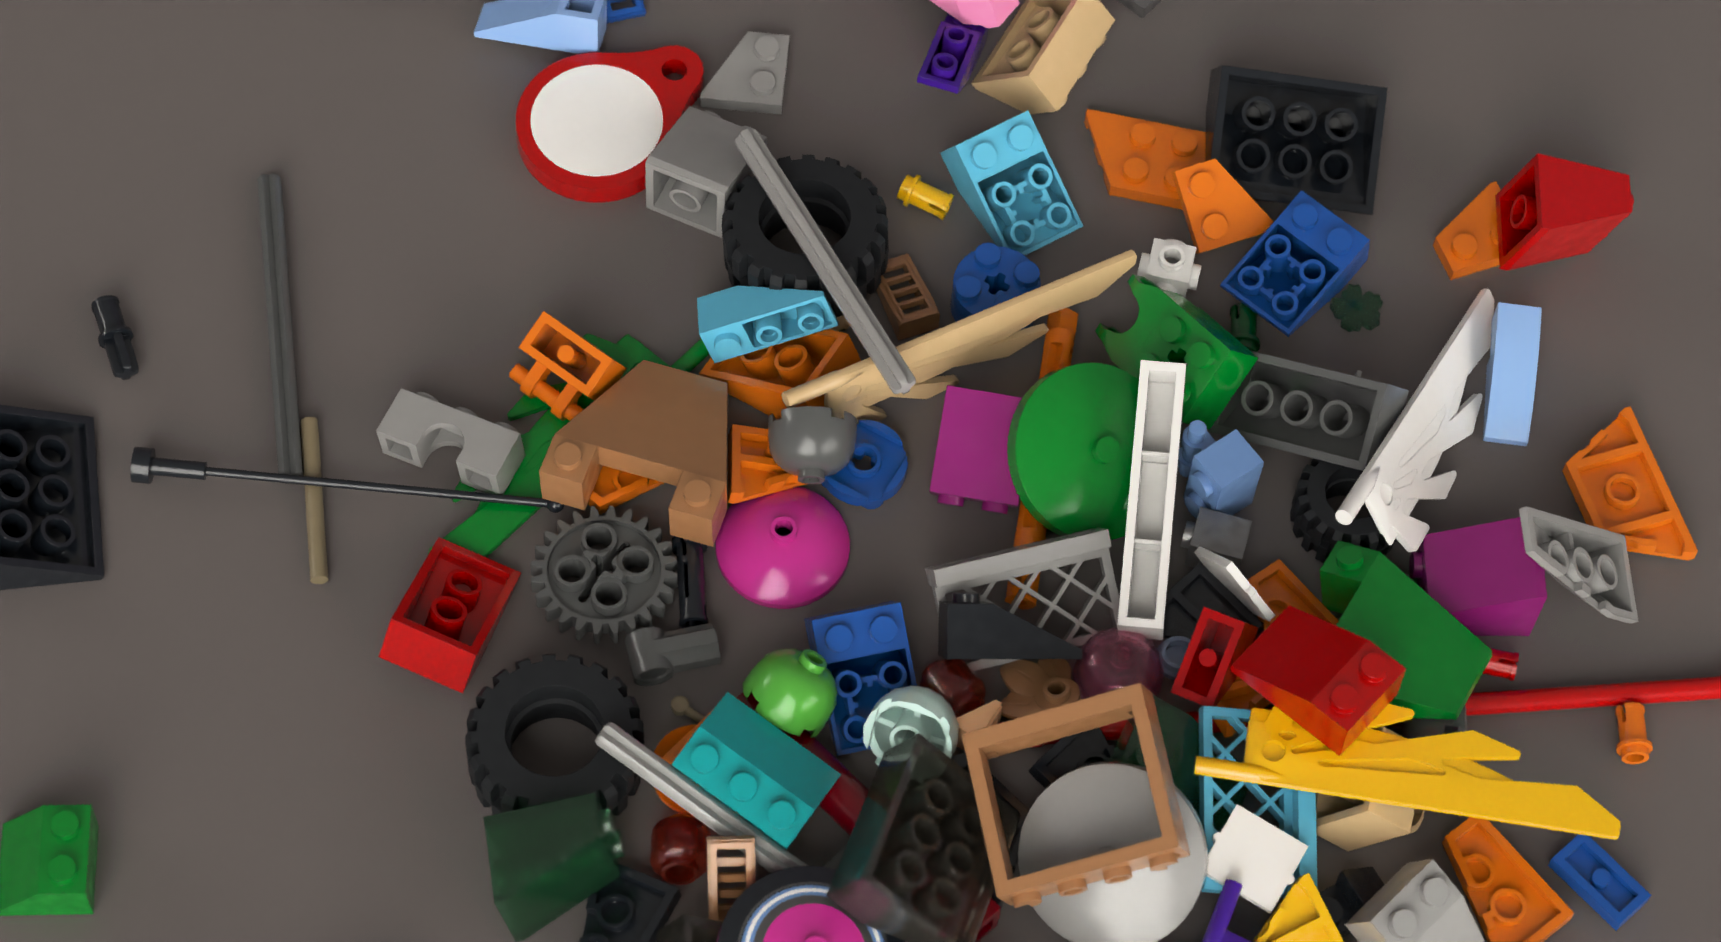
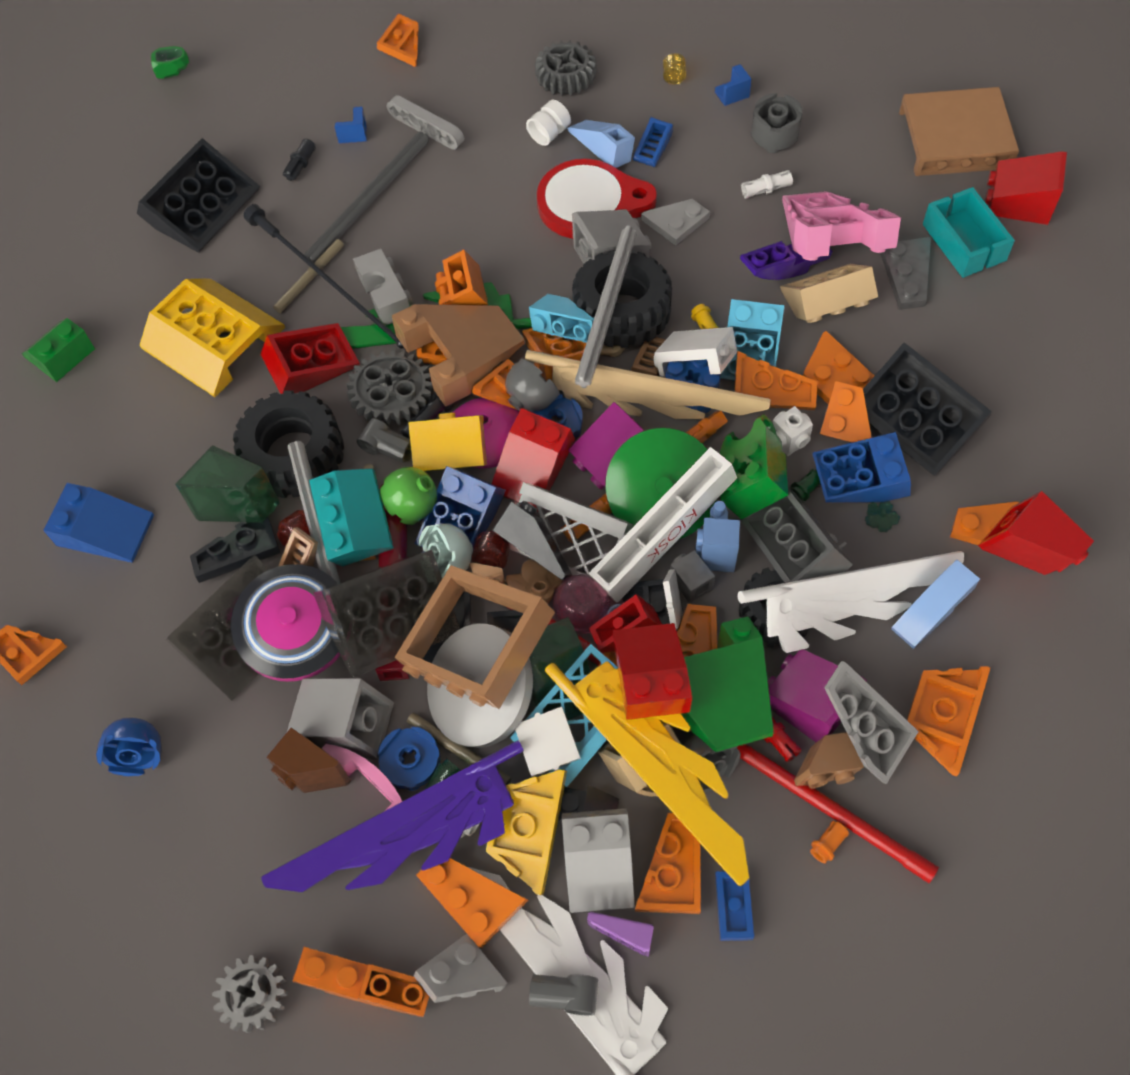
camera: 50 degrees right, 0 degrees up
(78, 46) = (401, 40): none -> orange wing
(149, 236) = (352, 130): none -> blue panel
(253, 155) = (425, 121): none -> light grey beam
(265, 706) = (192, 340): none -> yellow slope
(443, 42) = (548, 122): none -> white wheel
(767, 591) = (448, 442): none -> yellow container
(891, 532) = (532, 454): none -> red slope
(967, 243) = (713, 344): none -> white panel
(1090, 229) = (781, 386): none -> orange wing
(1559, 640) = (829, 760): none -> medium nougat slope

